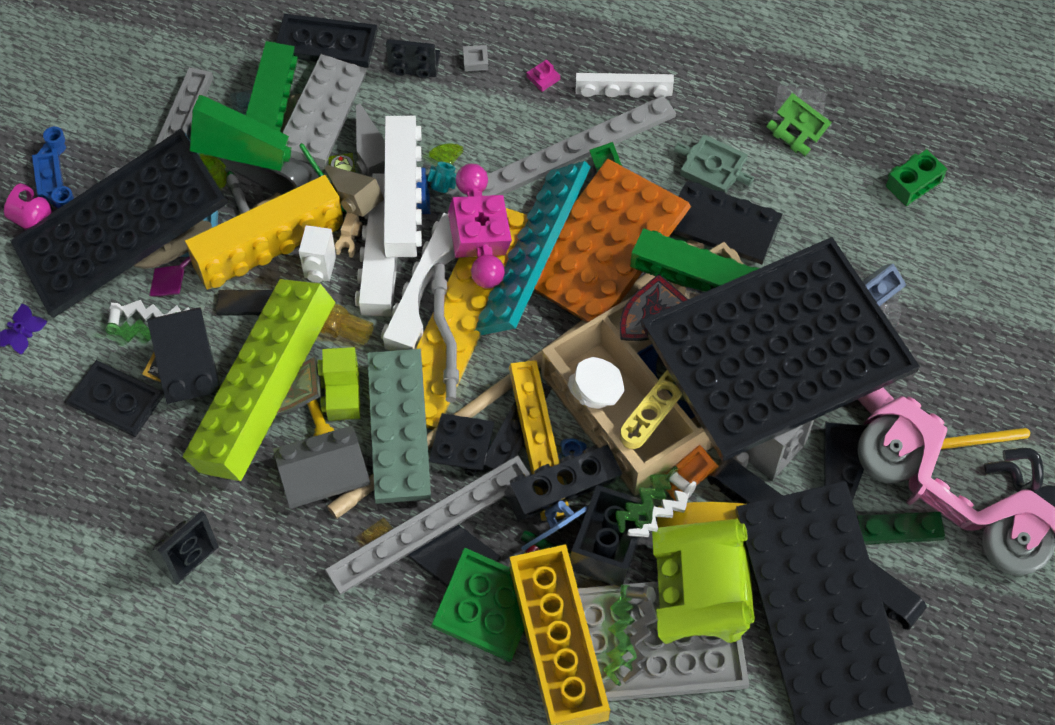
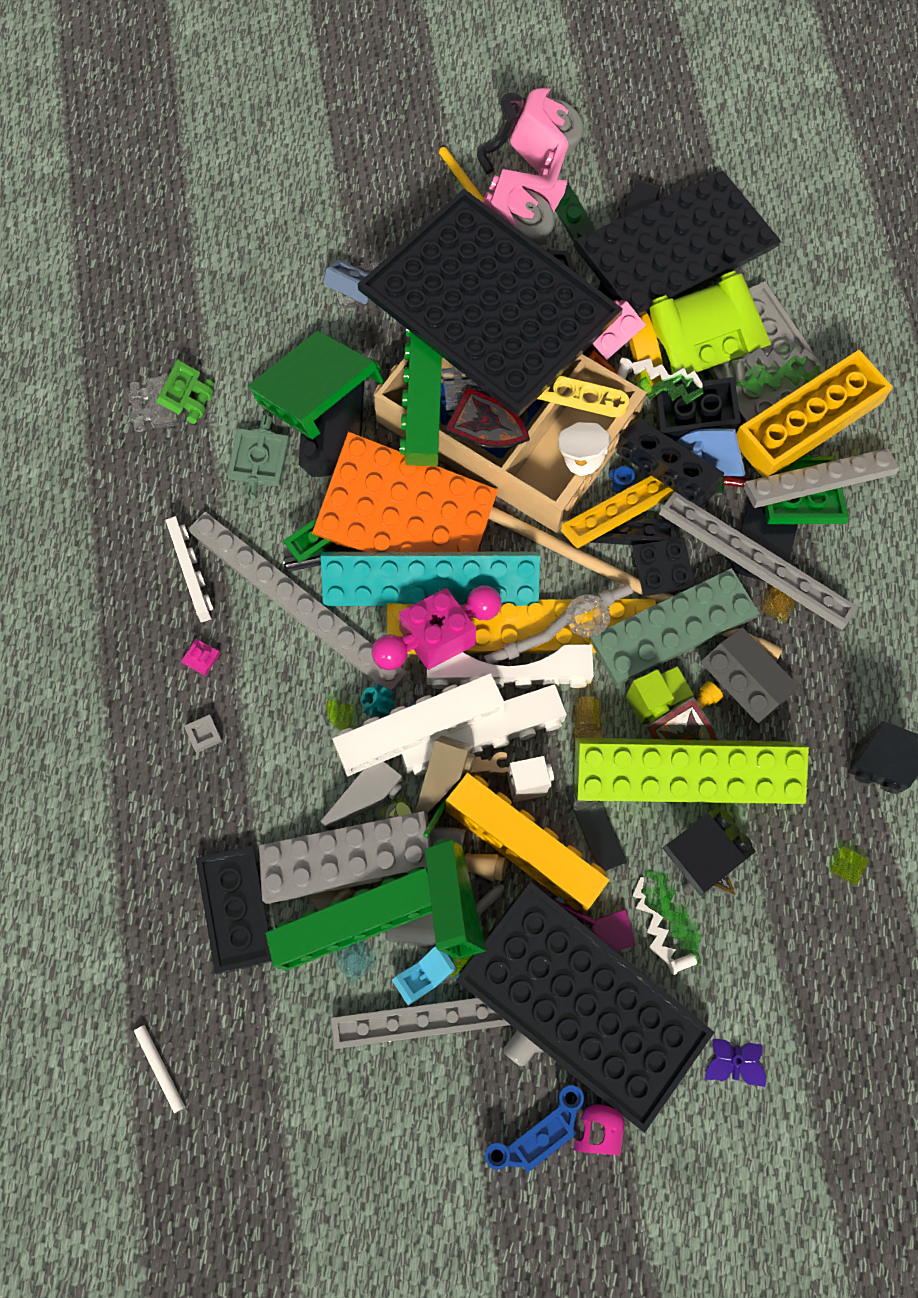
camera: 115 degrees left, 10 degrees up
(115, 398) = (764, 916): black tile -> none
(116, 484) = (849, 865): none -> clear neon green tile
(412, 58) = (227, 798): black bracket -> none
(442, 338) = (588, 603): none -> clear gear
(488, 625) = (821, 478): none -> light grey plate
(729, 483) = (620, 331): none -> bright pink bracket
(765, 210) = (312, 381): none -> green panel
(916, 177) = (211, 279): green brick -> none

